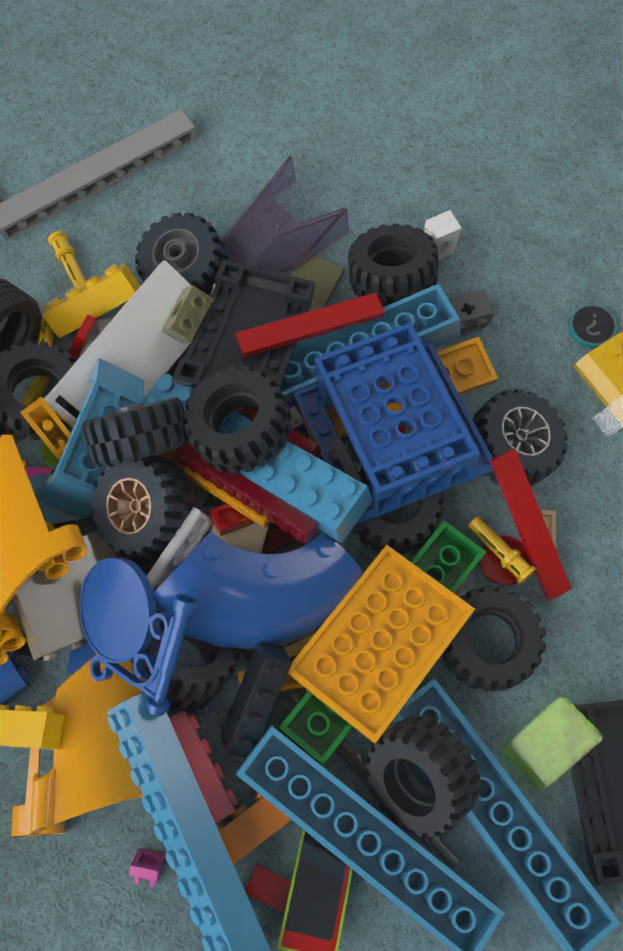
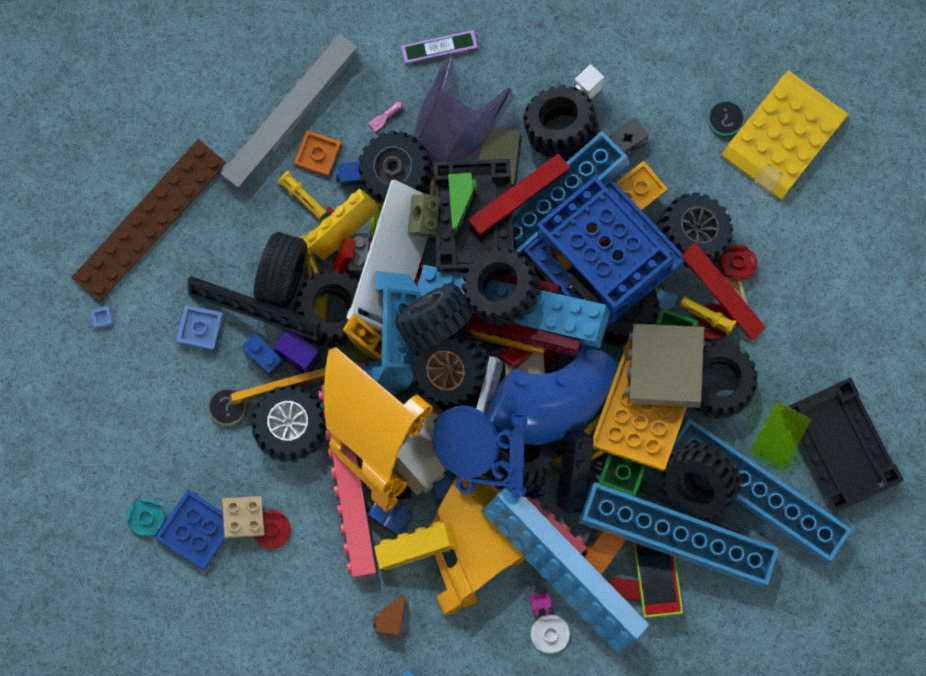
camera: 20 degrees left, 5 degrees up
(107, 226) = (317, 153): none -> orange tile
(126, 253) = (348, 174): none -> blue brick
(146, 908) = (547, 639): none -> white tile
(204, 208) = (380, 120): none -> bright pink piece
(236, 307) = (461, 194): none -> bright green slope
(273, 157) = (439, 47): none -> tile
(424, 597) = (665, 365): none -> dark tan brick
(454, 514) = (666, 300): none -> dark azure tile
(559, 497) = (738, 262): none -> red tile

